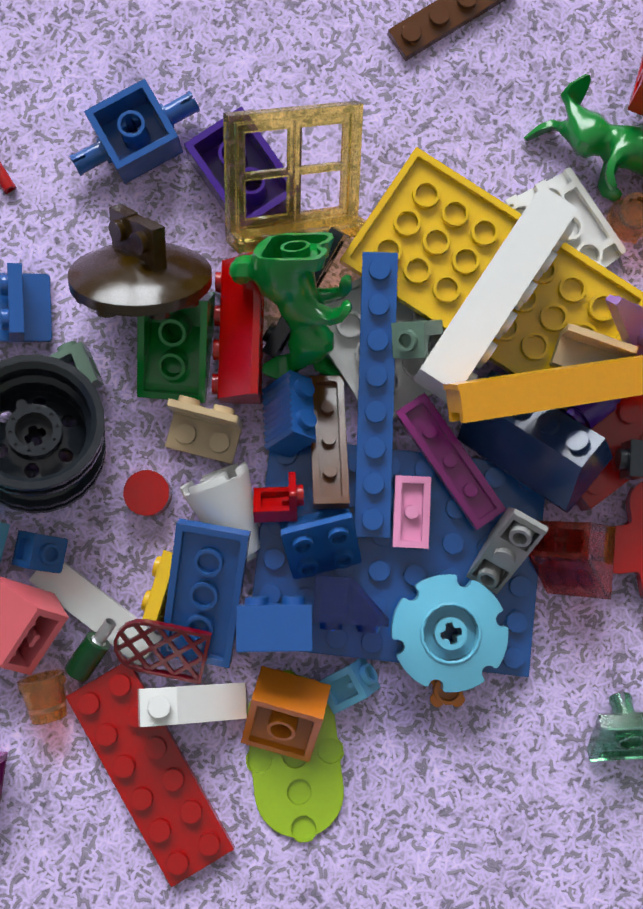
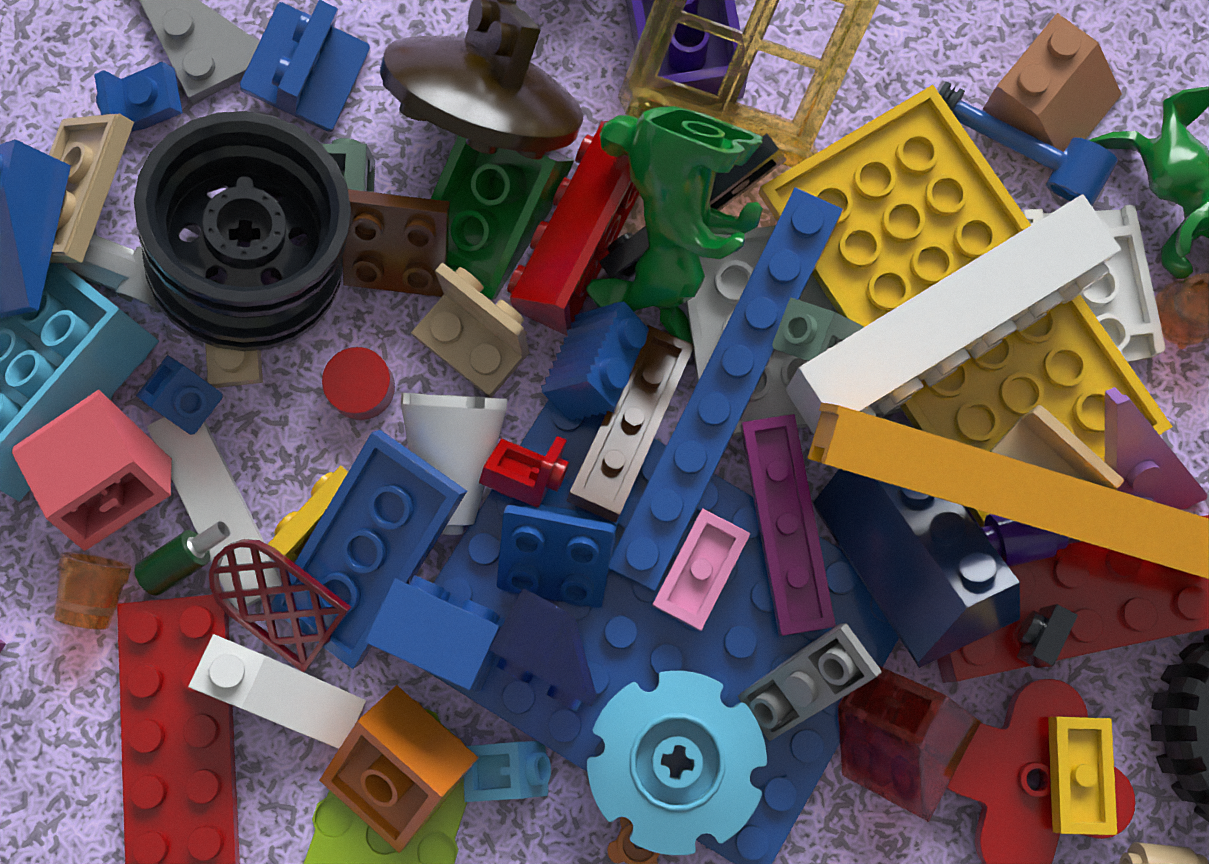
camera: 30 degrees right, 5 degrees down
(63, 519) = (233, 367): none -> tan plate
(131, 395) = (396, 243): none -> reddish brown plate
(492, 114) = (1056, 86): none -> nougat slope
(527, 159) = (1076, 171): none -> blue piece

